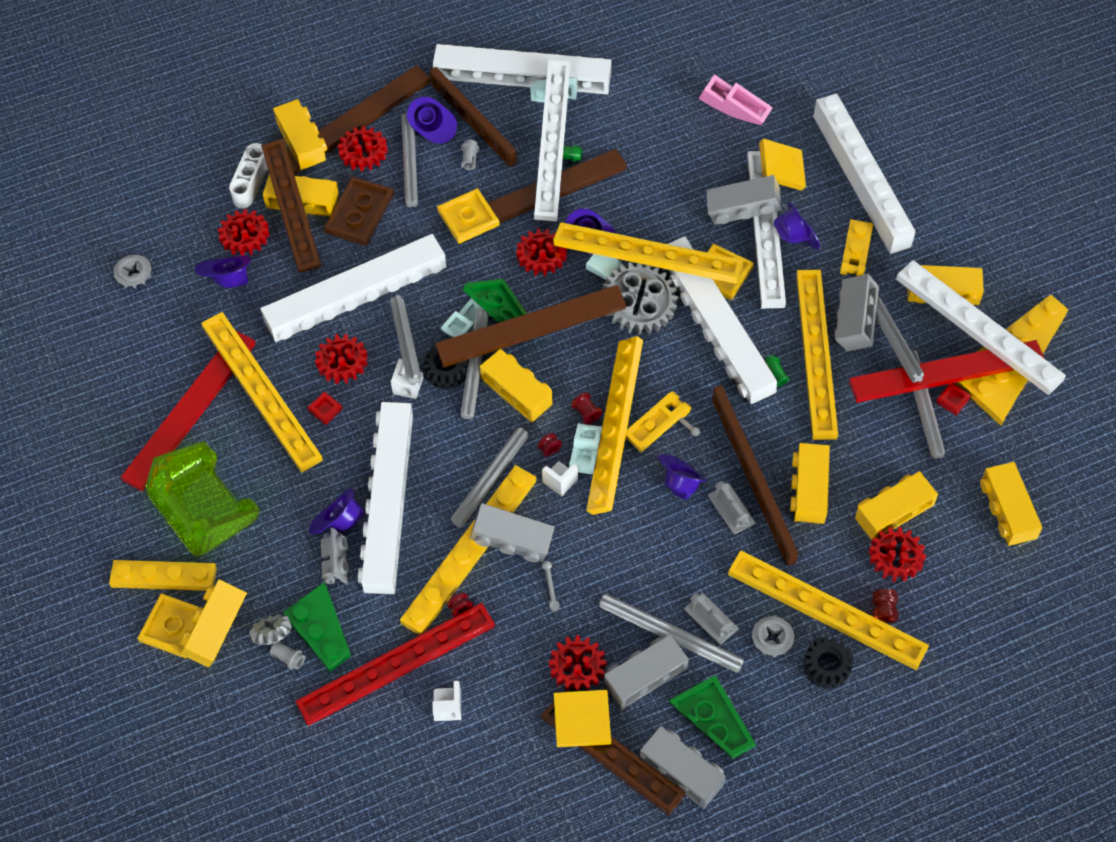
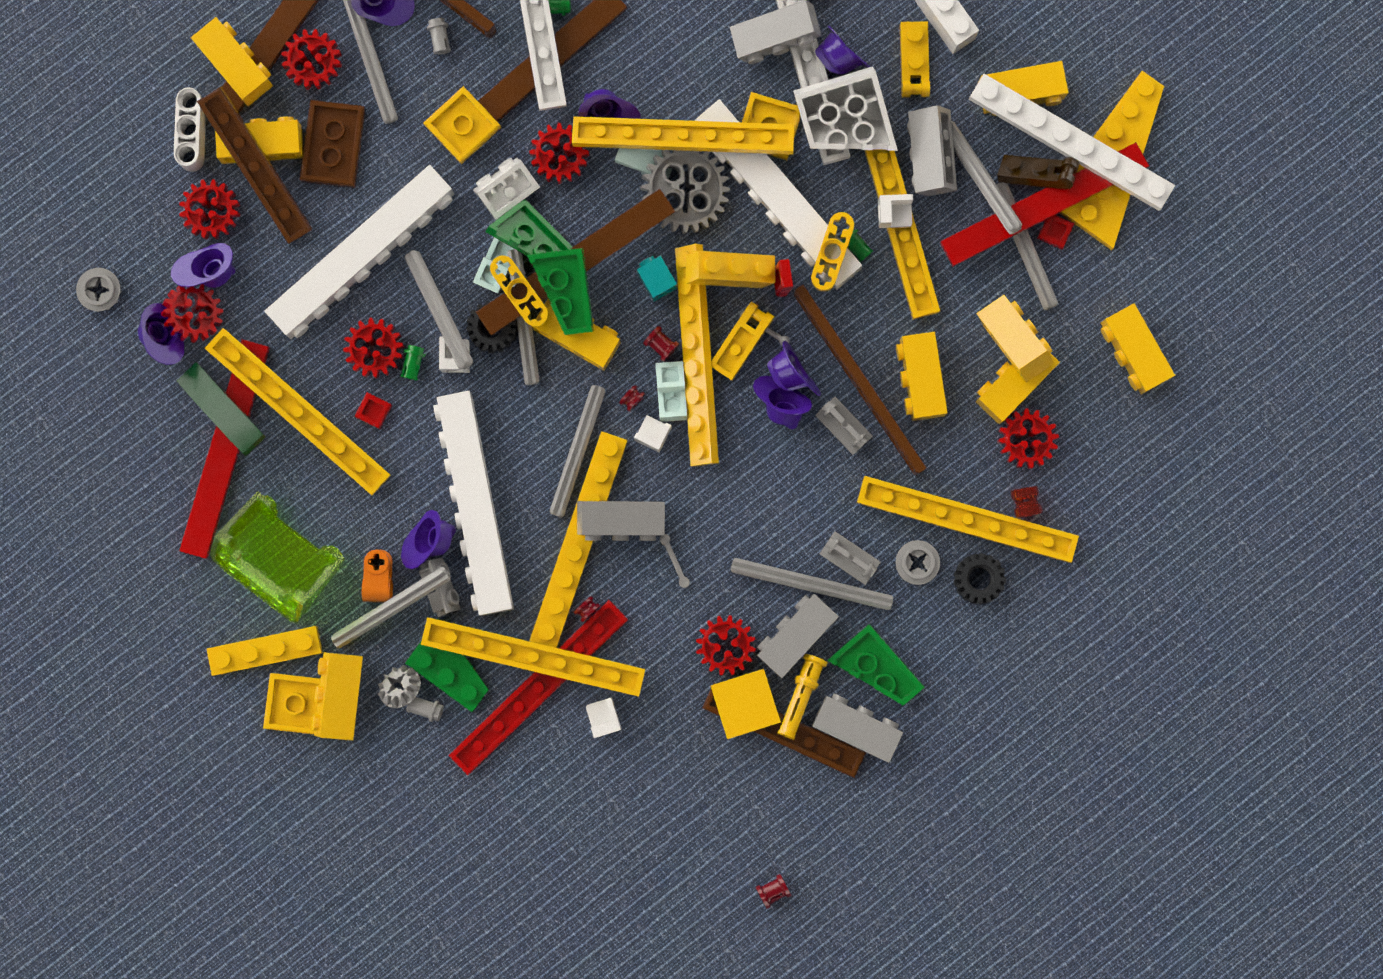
camera: 15 degrees left, 25 degrees up
(170, 307) = (158, 338): none -> dark purple piece
(195, 288) = (204, 323): none -> red gear
(197, 372) = (221, 409): none -> slope
(283, 534) = (377, 584): none -> orange piece
(286, 559) = (391, 607): none -> light grey axle
(372, 373) = (412, 362): none -> green pin
(400, 630) = (533, 656): none -> yellow plate
(474, 343) = (500, 278): none -> yellow beam
(491, 266) = (506, 187): none -> white bracket
(517, 337) = (566, 285): none -> green wing
(596, 358) = (656, 277): none -> teal brick
(643, 715) = (806, 679): none -> yellow pin
(661, 359) = (730, 269): none -> yellow brick
(691, 450) = (789, 372): none -> dark purple piece
(705, 376) = (783, 278): none -> red tile
(753, 353) = (846, 234): none -> yellow beam
(789, 263) = (846, 113): none -> white wedge
(815, 346) = (895, 211): none -> white panel
(901, 464) = (1016, 337): none -> yellow brick
(946, 344) = (1038, 171): none -> dark brown plate

